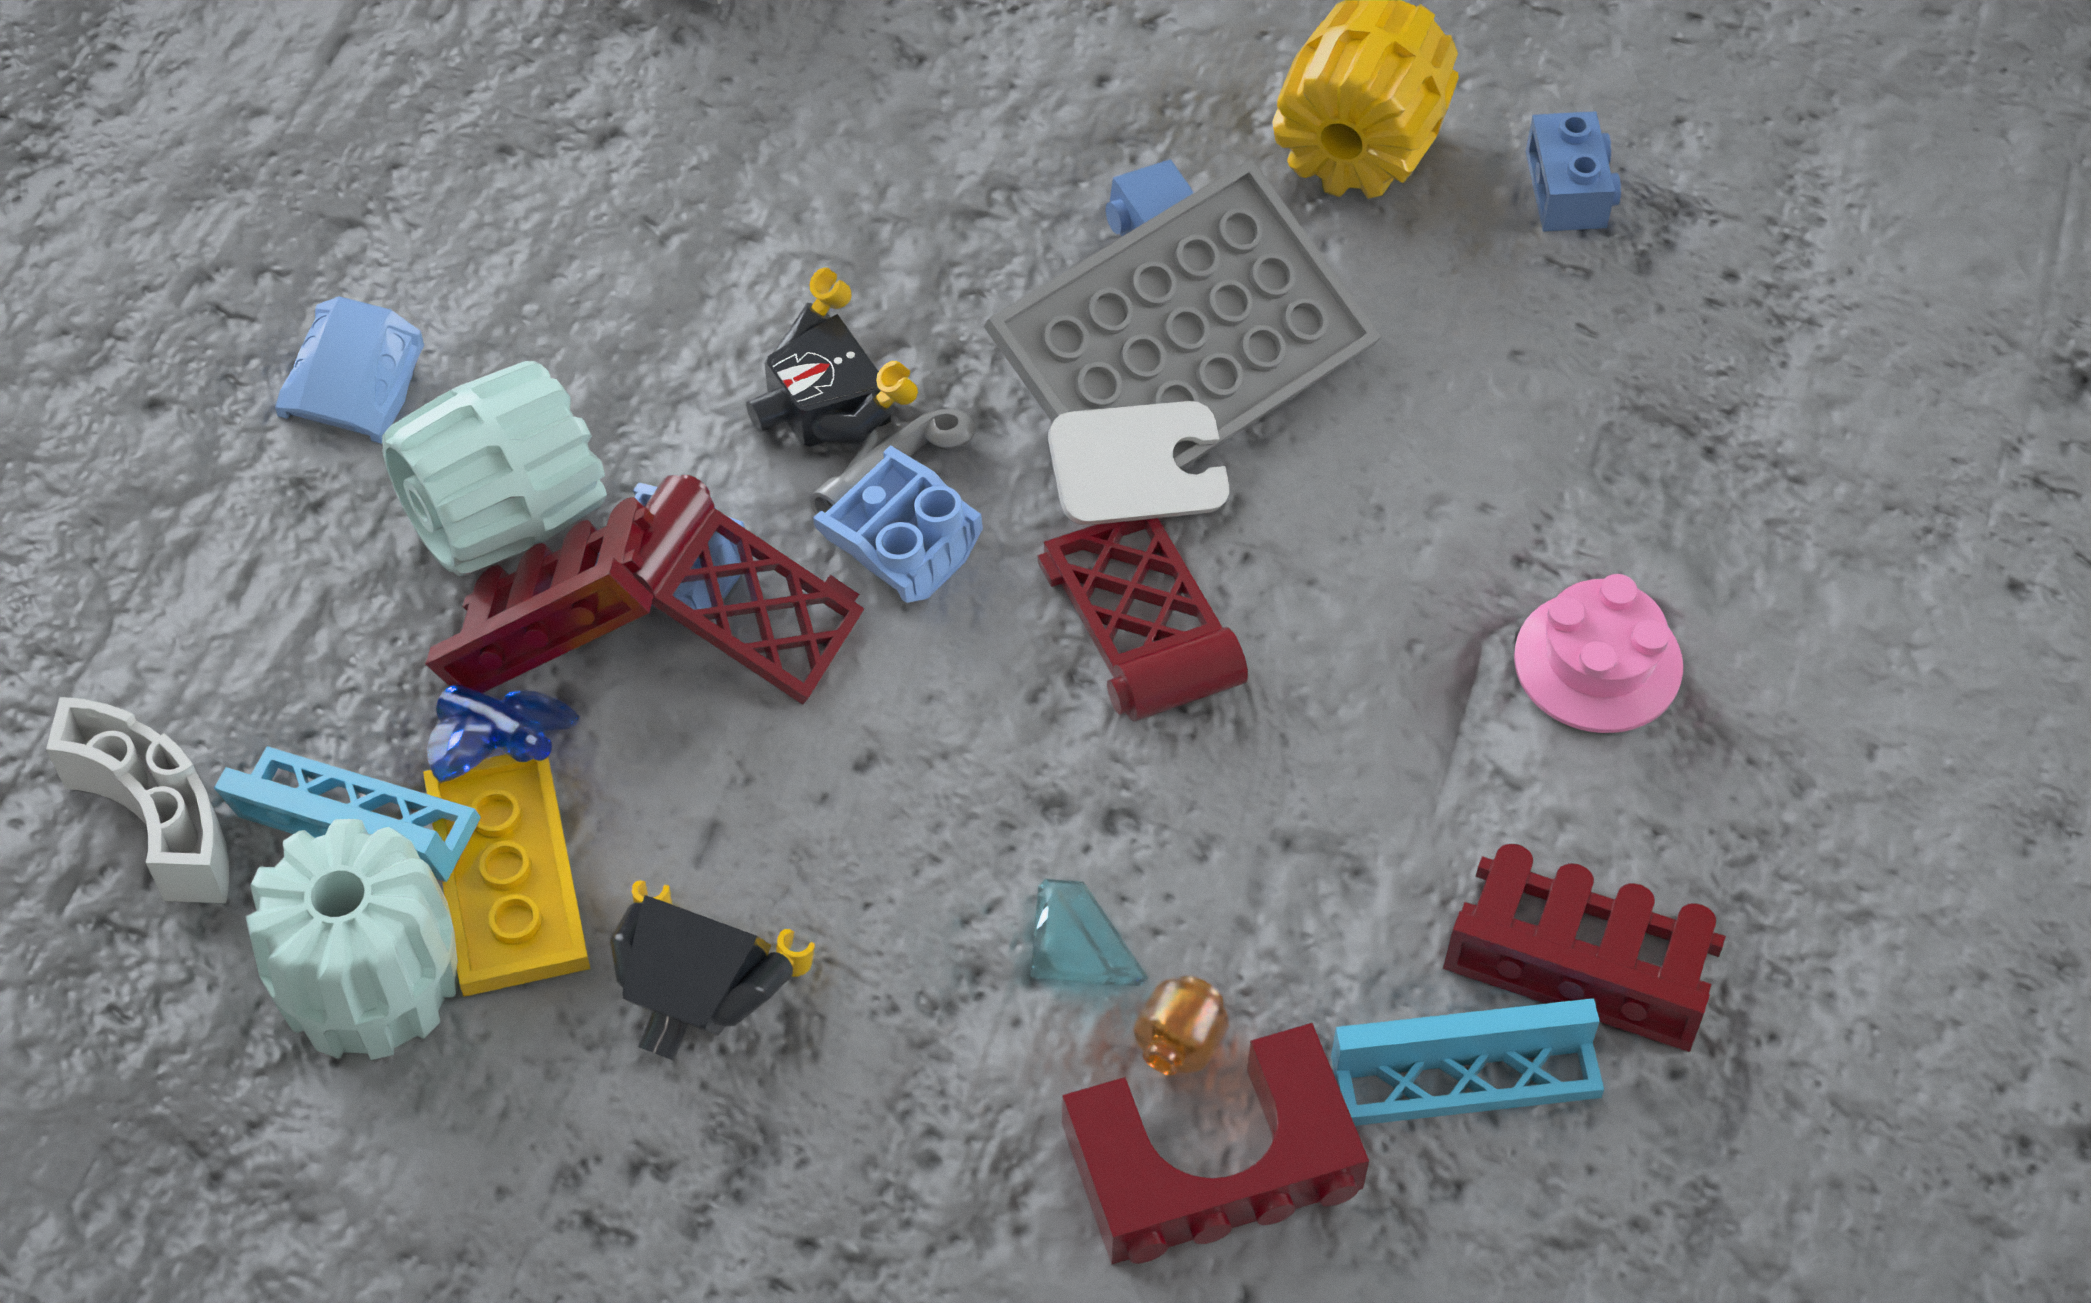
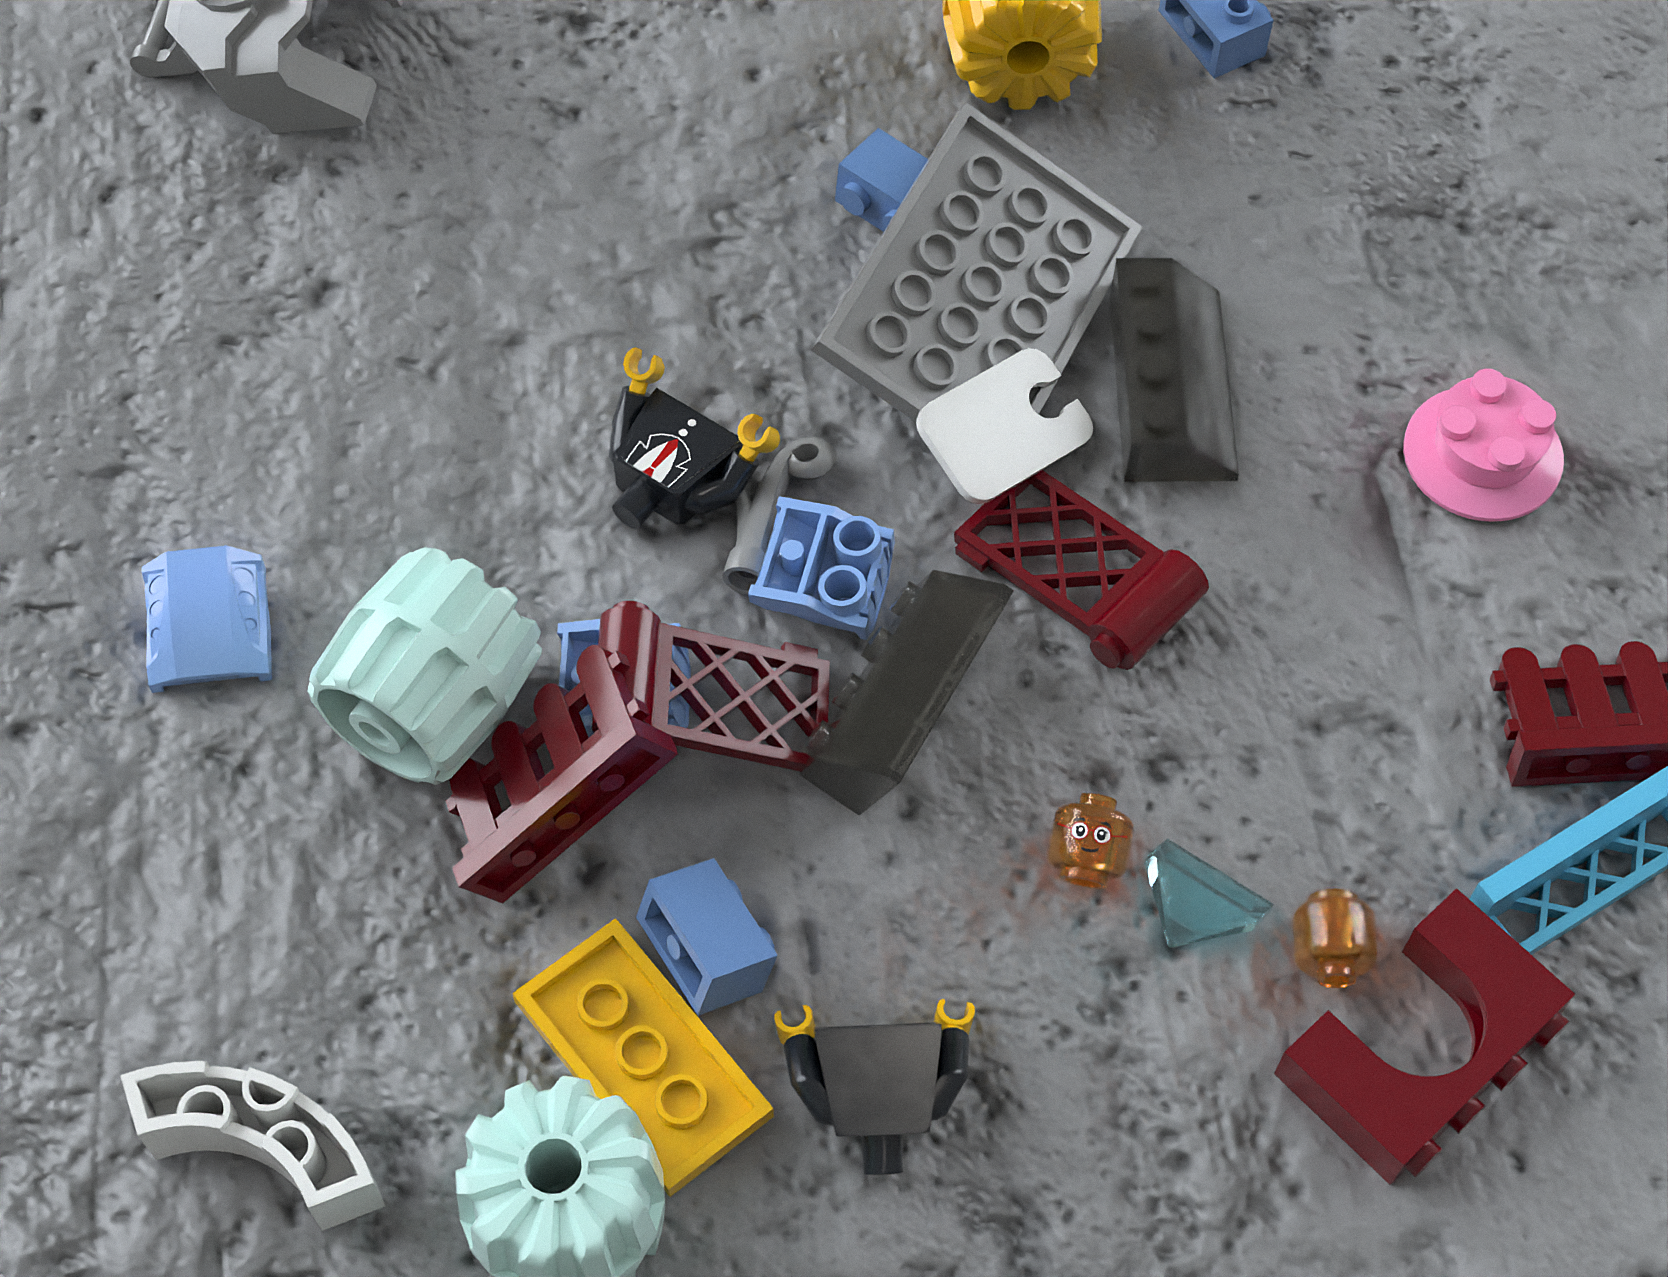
camera: 25 degrees left, 5 degrees up
(301, 808) = (466, 1078): medium azure fence -> none
(479, 724) = (551, 923): clear blue plant -> none
(613, 790) = (706, 936): none -> medium blue brick
(904, 650) = (902, 687): none -> clear smoke slope
(1003, 851) = (1090, 841): none -> clear orange head
(1330, 477) = (1171, 374): none -> clear smoke slope

